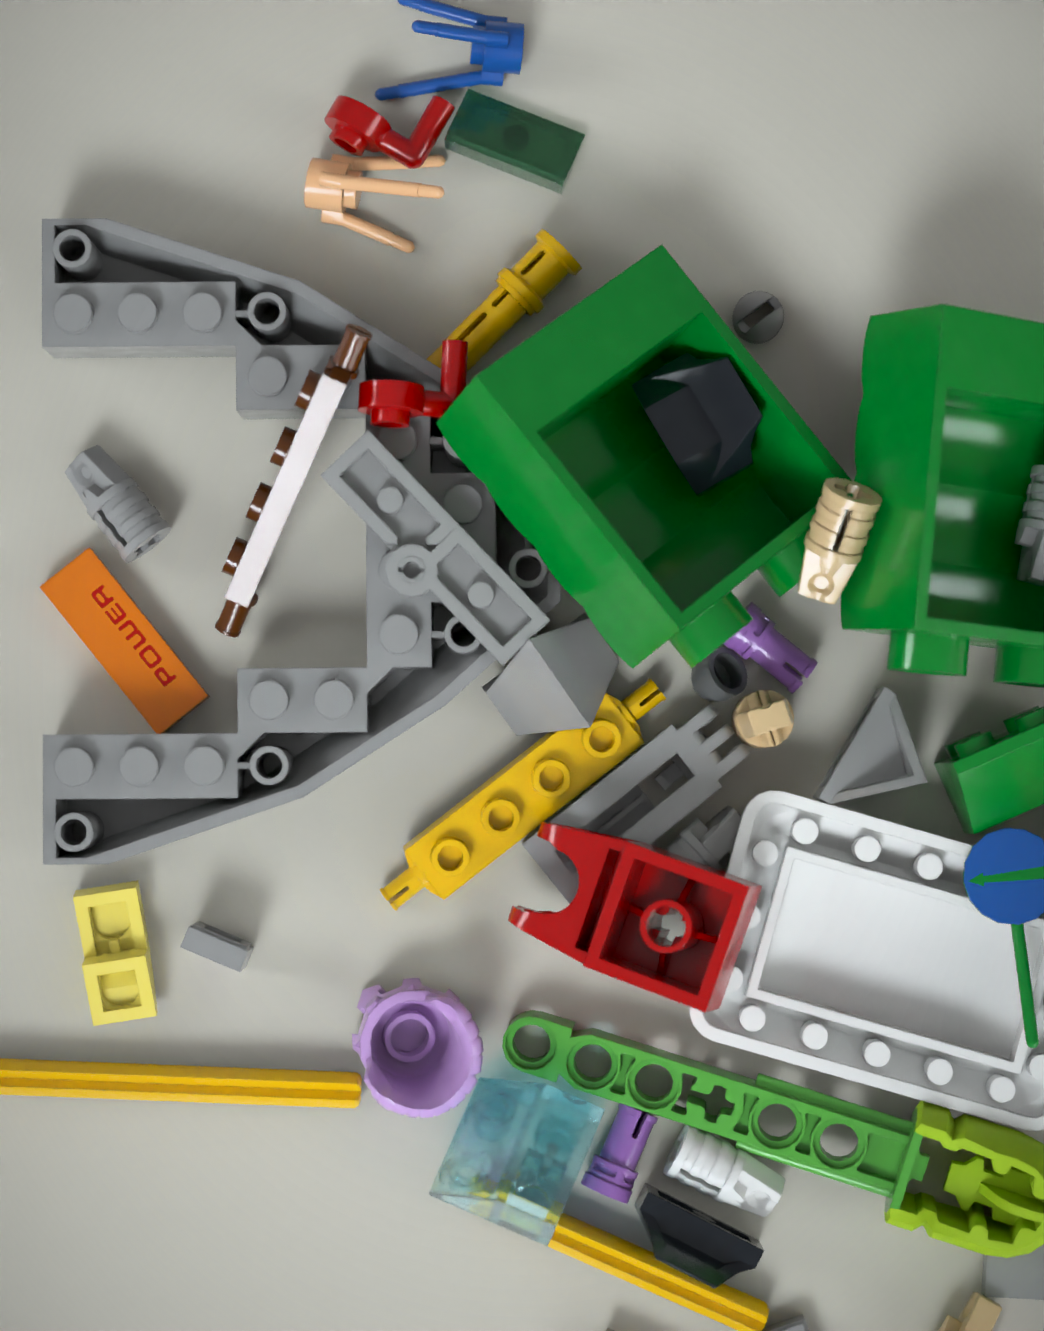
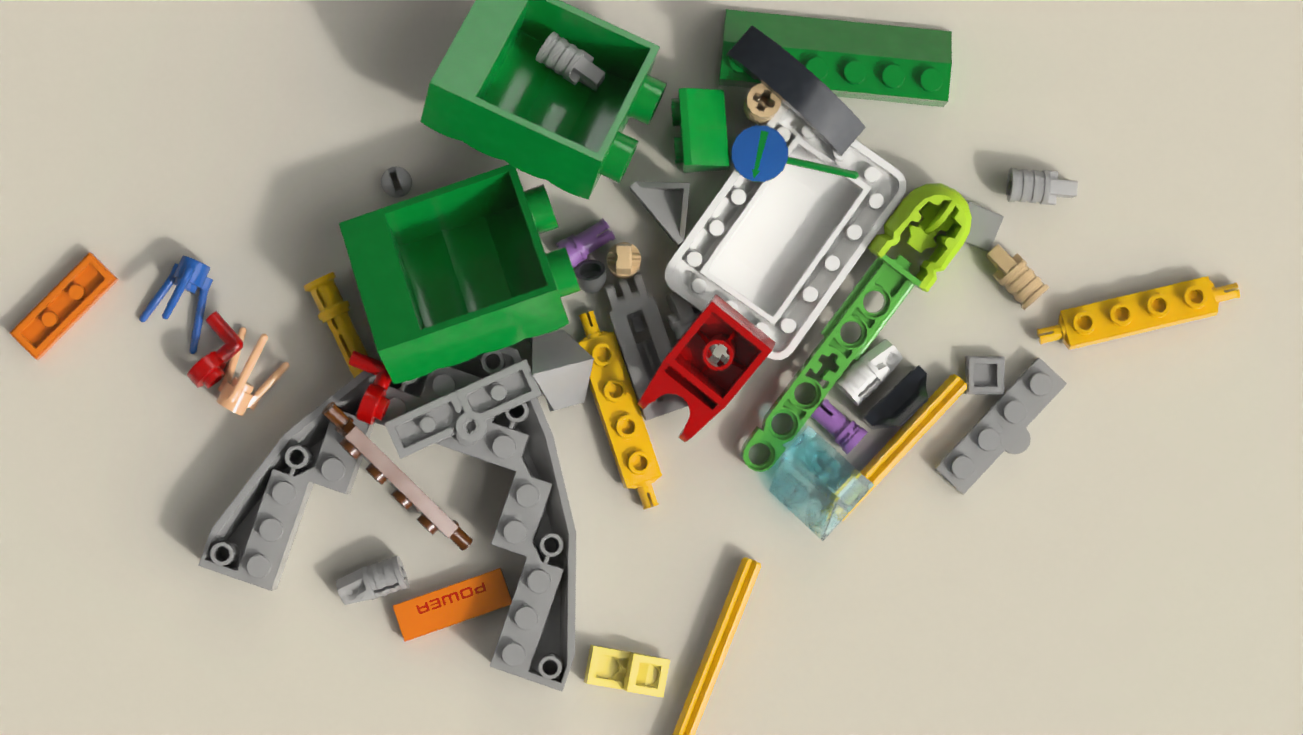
camera: 70 degrees left, 0 degrees up
(217, 946) = (642, 611): light grey tile -> none
(417, 1048) = (739, 518): lavender hair -> none
(514, 141) = (247, 284): clear green slope -> none
(701, 418) = (443, 235): black slope -> none
(833, 555) = (544, 192): tan hinge -> none

